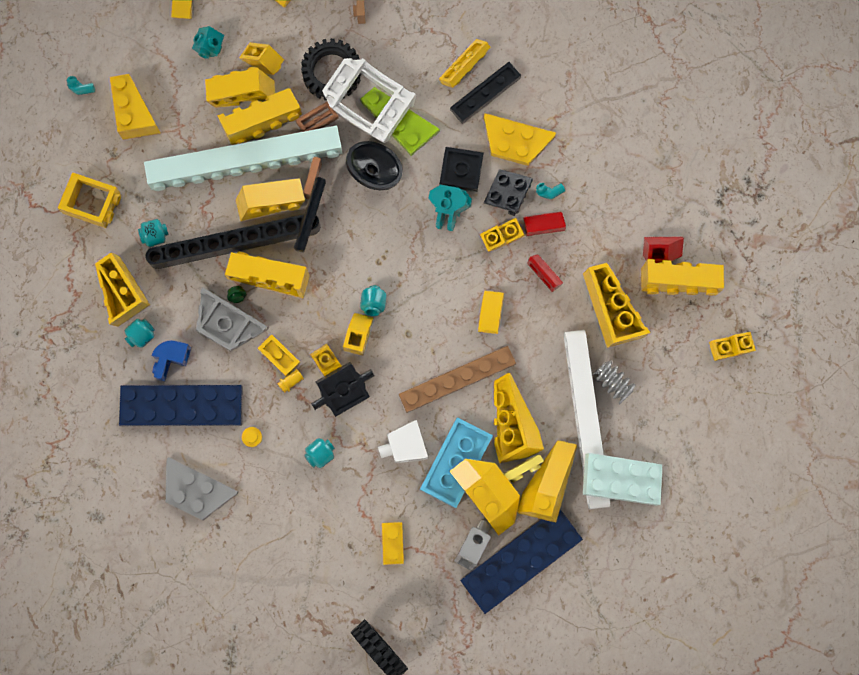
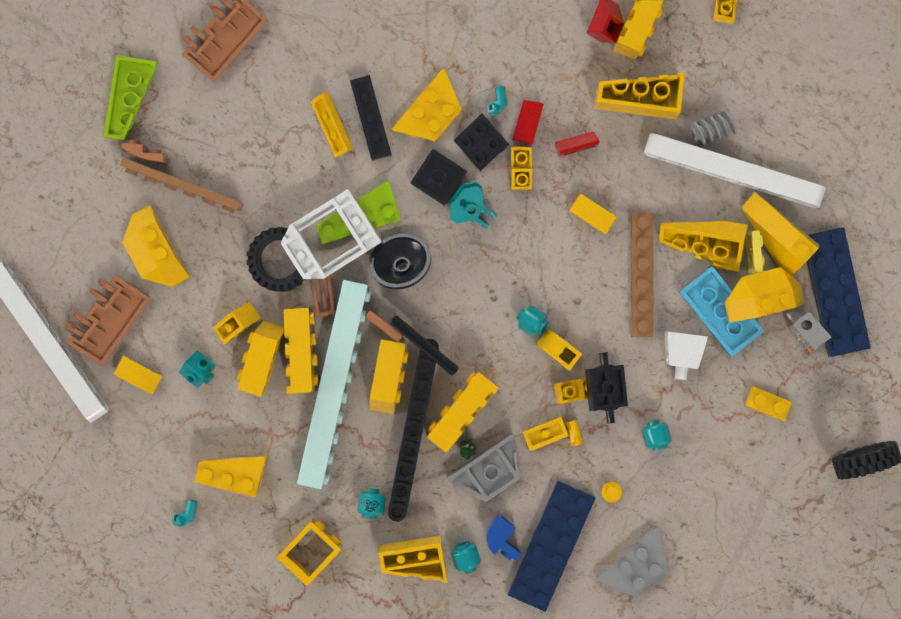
camera: 60 degrees left, 10 degrees up
(622, 479) = (808, 164): light aqua plate -> none

